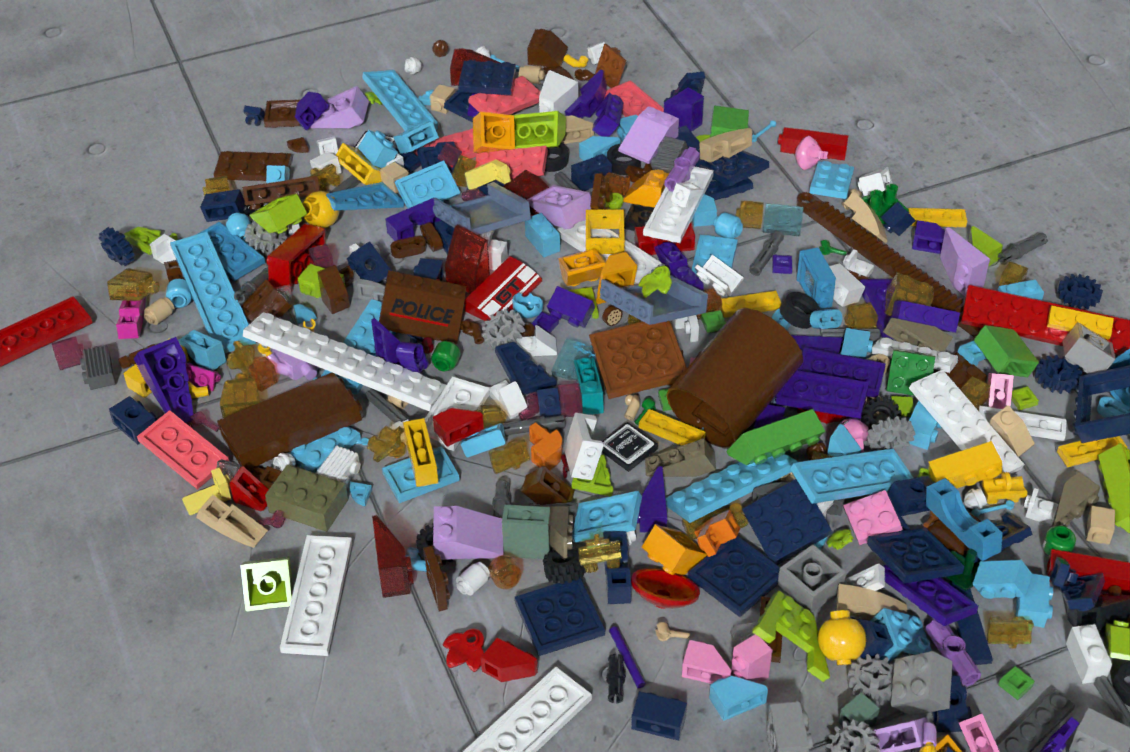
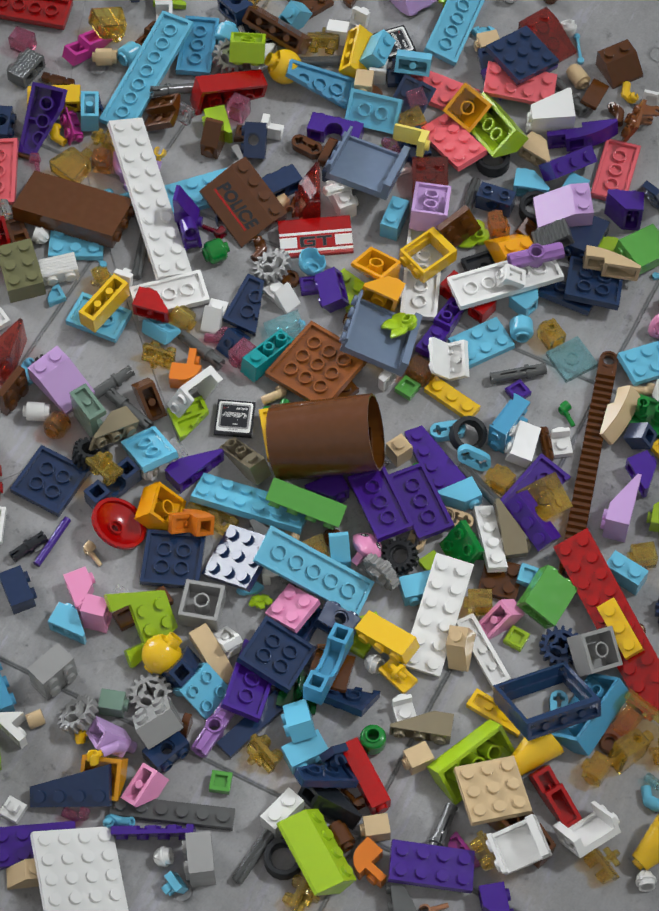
camera: 50 degrees right, 15 degrees up
(303, 313) = (180, 139): medium azure tile -> none
(1008, 505) = (392, 689): medium azure hinge -> none

